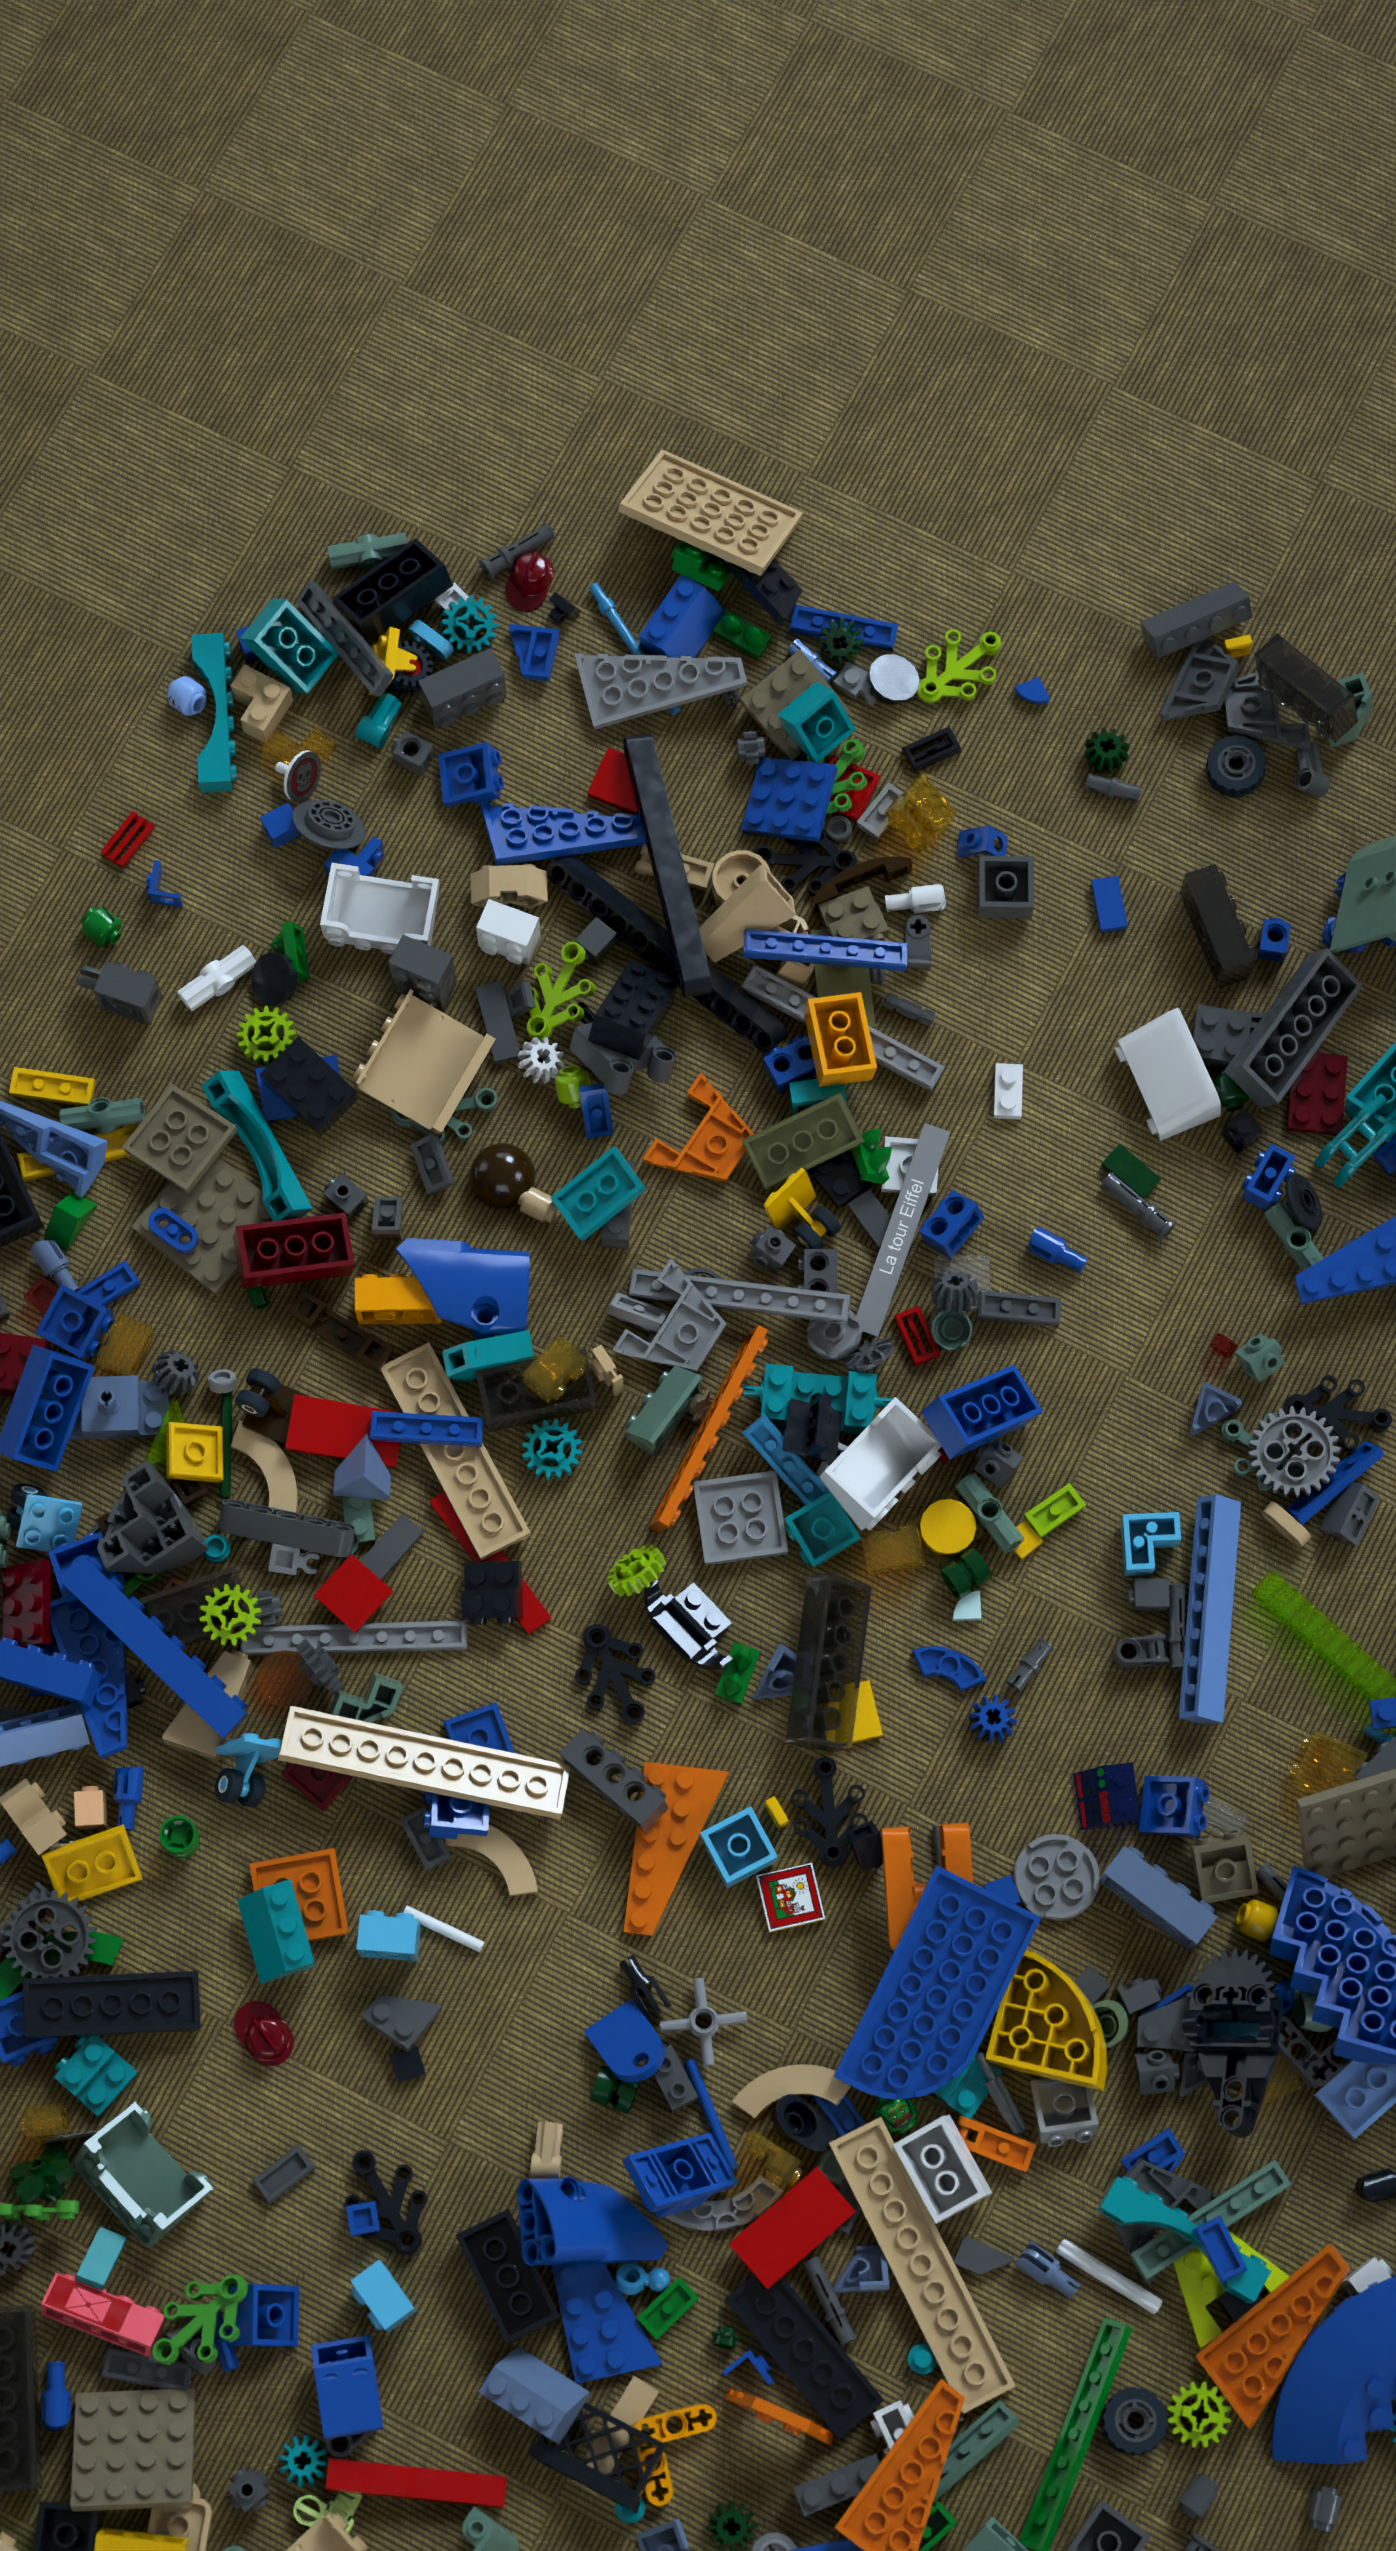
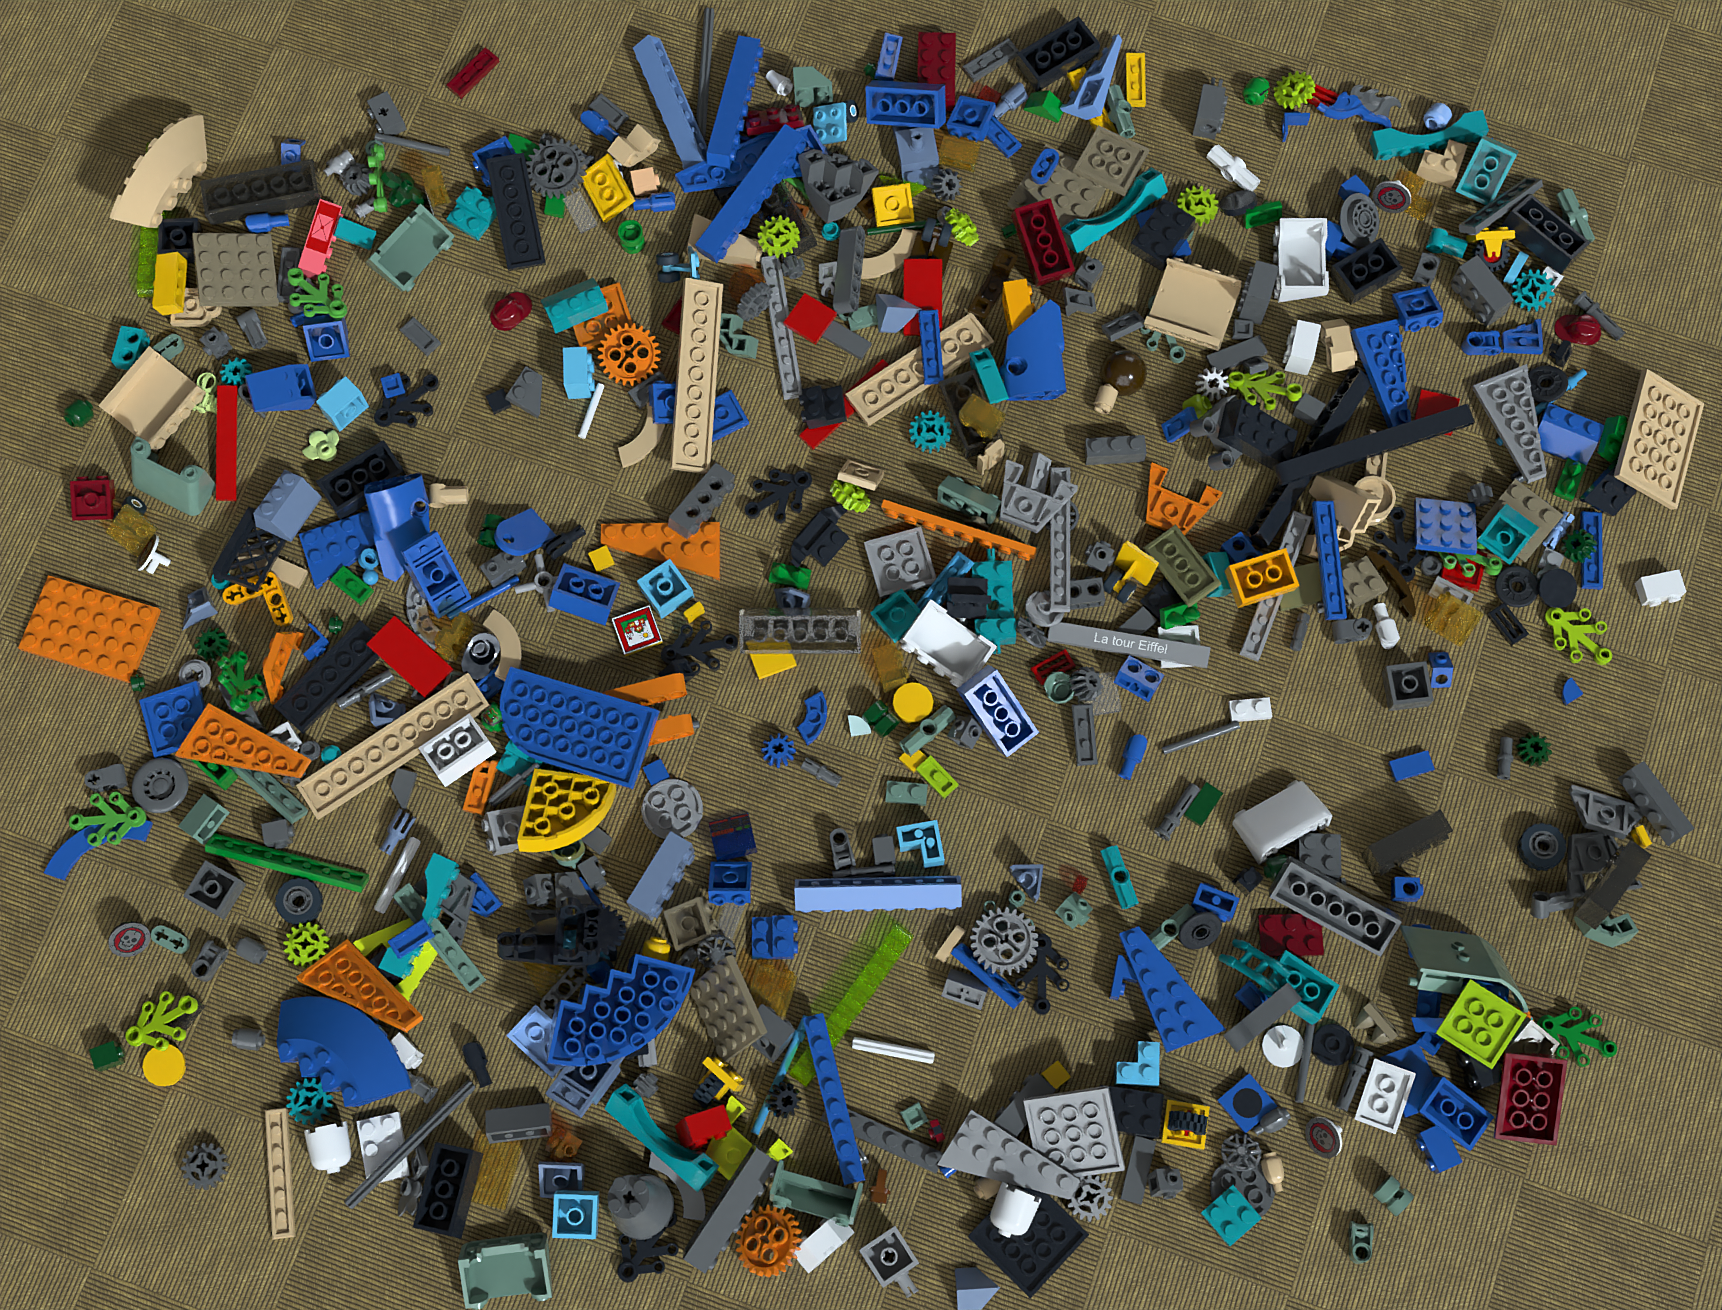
camera: 85 degrees right, 0 degrees up
(57, 2239) = (364, 208): none -> light grey pin
(112, 887) = (1294, 90): none -> lime gear
(122, 1911) = (580, 212): none -> clear tile
(148, 788) = (1364, 104): none -> piece
(223, 2433) = (251, 326): none -> dark grey piece
(248, 1356) = (963, 228): none -> lime gear
(350, 1877) = (643, 365): none -> orange gear
(406, 830) = (1365, 271): none -> black brick
(435, 2341) = (322, 445): none -> yellowish green plate
(462, 1007) = (1242, 329): none -> dark grey tile
(533, 701) = (1486, 343): none -> blue piece
(598, 1193) = (1116, 430): teal plate -> none
(602, 619) = (1547, 373): none -> black wheel
(606, 1552) = (860, 474): none -> tan tile
(675, 1937) = (601, 558): none -> yellow tile
(731, 1963) = (584, 594): none -> blue slope
(837, 2478) = (239, 701): none -> green plant
(887, 743) = (1516, 598): none -> black wheel
(909, 555) = (1660, 588): none -> white brick
(910, 2390) = (310, 750): none -> dark grey plate
(1030, 2444) = (278, 833): none -> dark grey brick
(1039, 1160) = (1200, 737): none -> dark grey bar
(1071, 1555) = (906, 793): none -> sand green plate
(1202, 1296) = (1115, 864): none -> teal piece
(1253, 1758) = (774, 937): none -> blue plate
(1268, 1836) = (716, 951): none -> dark grey wheel
(1346, 1312) = (1122, 972): none -> blue slope

